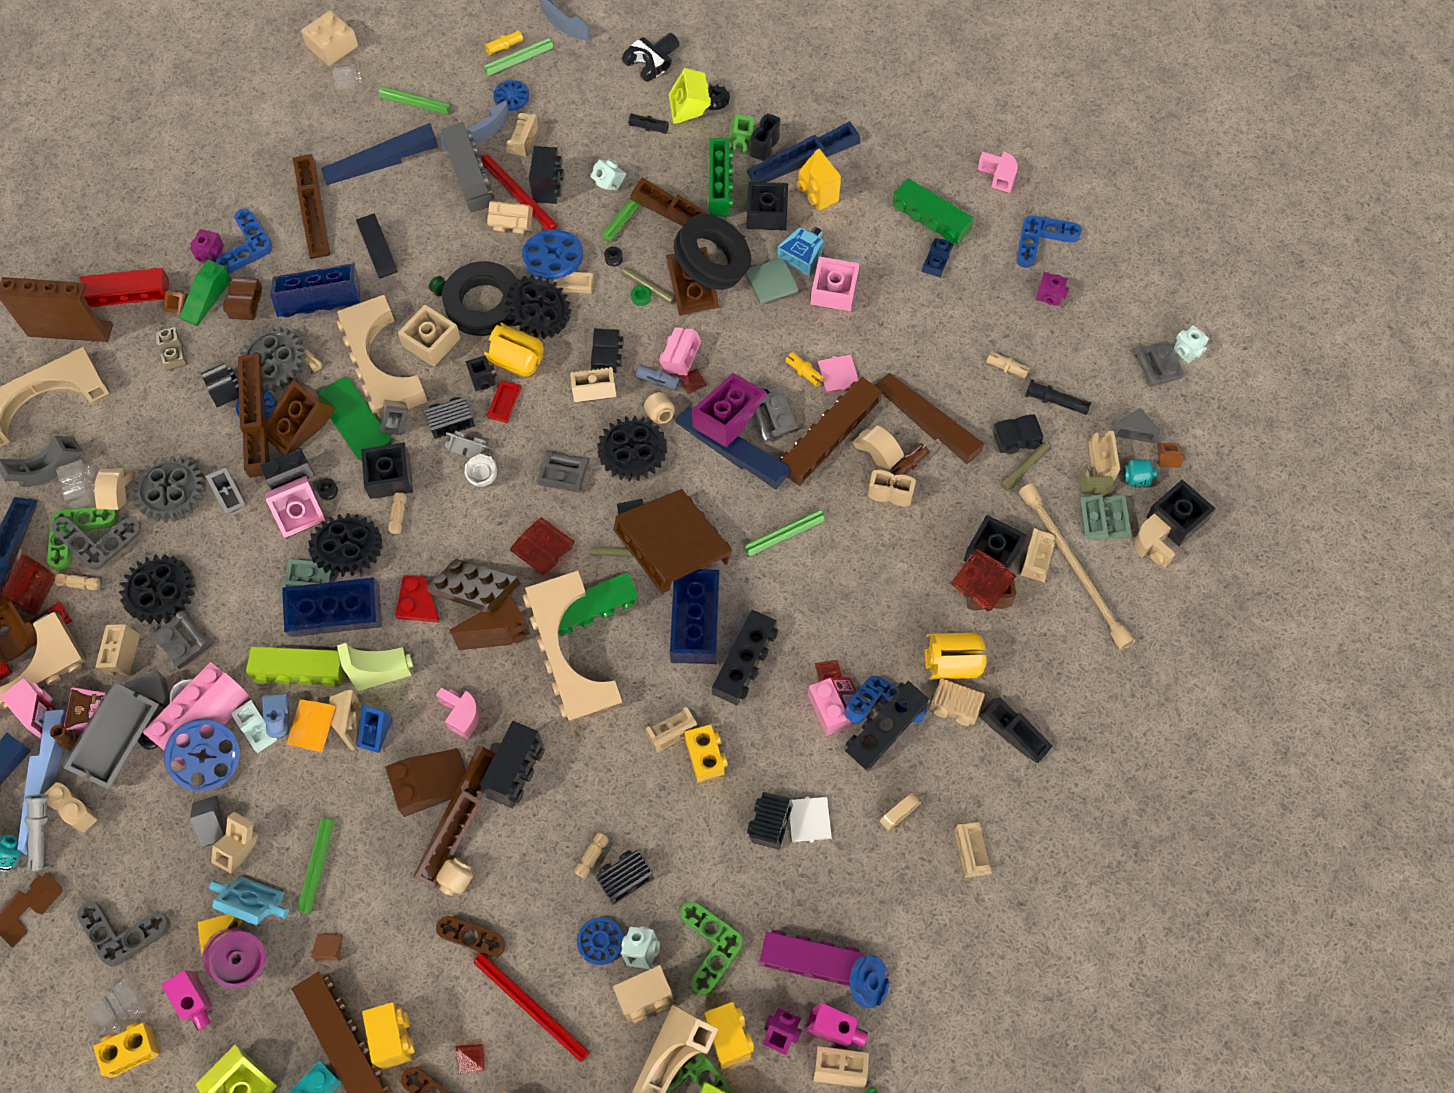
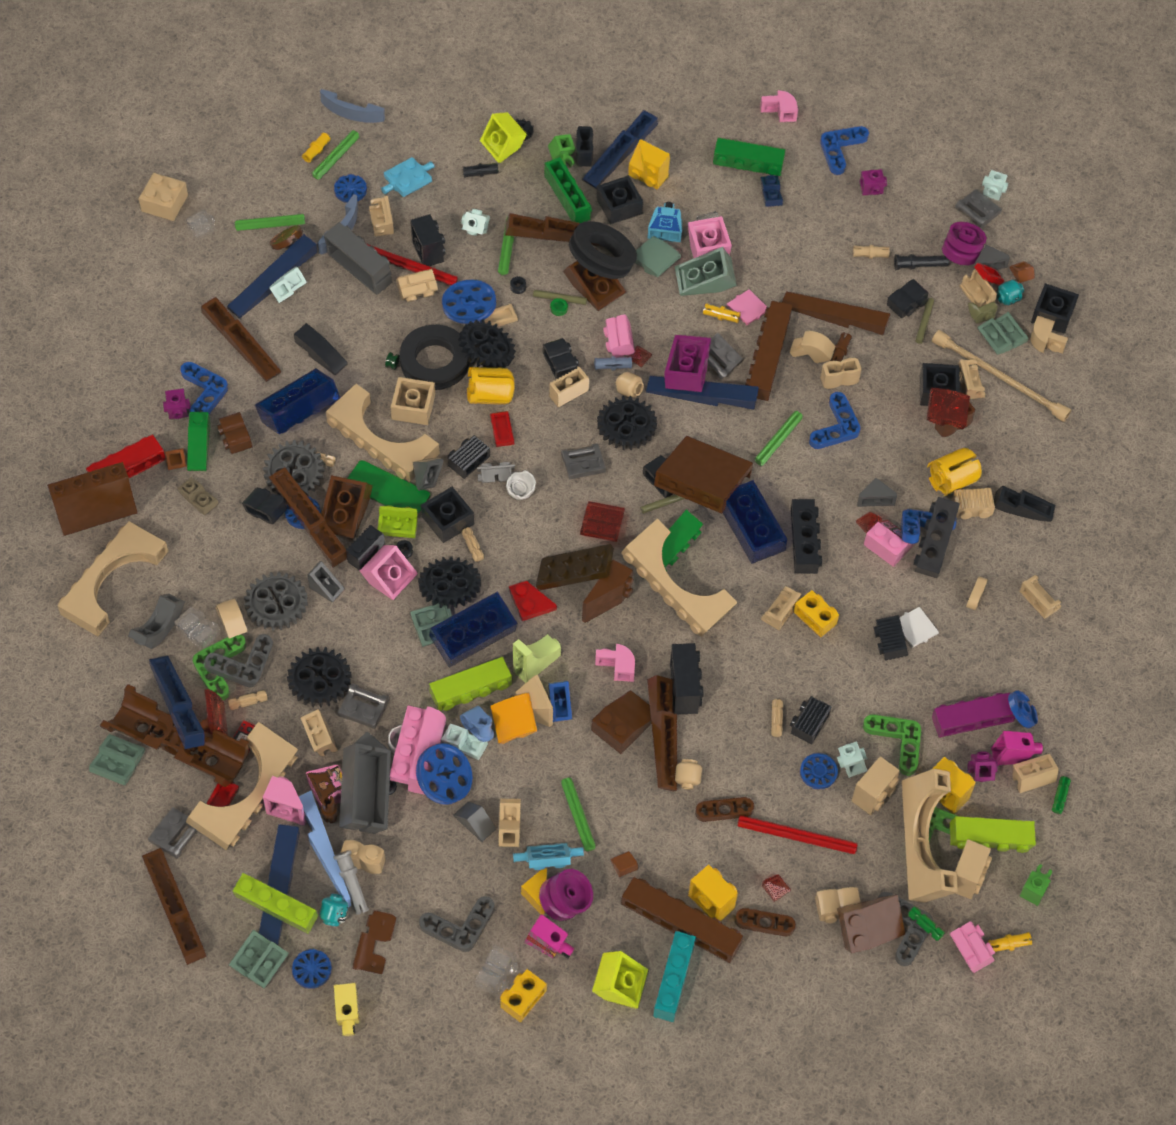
camera: 30 degrees left, 5 degrees down
(336, 457) = (398, 521): none -> lime bracket
(388, 168) = (287, 284): none -> light aqua slope
(415, 120) = (285, 237): none -> reddish brown tile
(481, 373) = (473, 413): black brick -> none
(573, 104) = (407, 177): none -> medium azure plate
(652, 55) = (449, 113): black connector -> none
(813, 320) = (706, 274): none -> sand green slope
(852, 644) = (877, 495): none -> dark grey slope
(860, 551) = (841, 428): none -> blue beam
(1115, 396) = (964, 243): none -> magenta wheel
(1125, 442) = (989, 274): none -> red tile

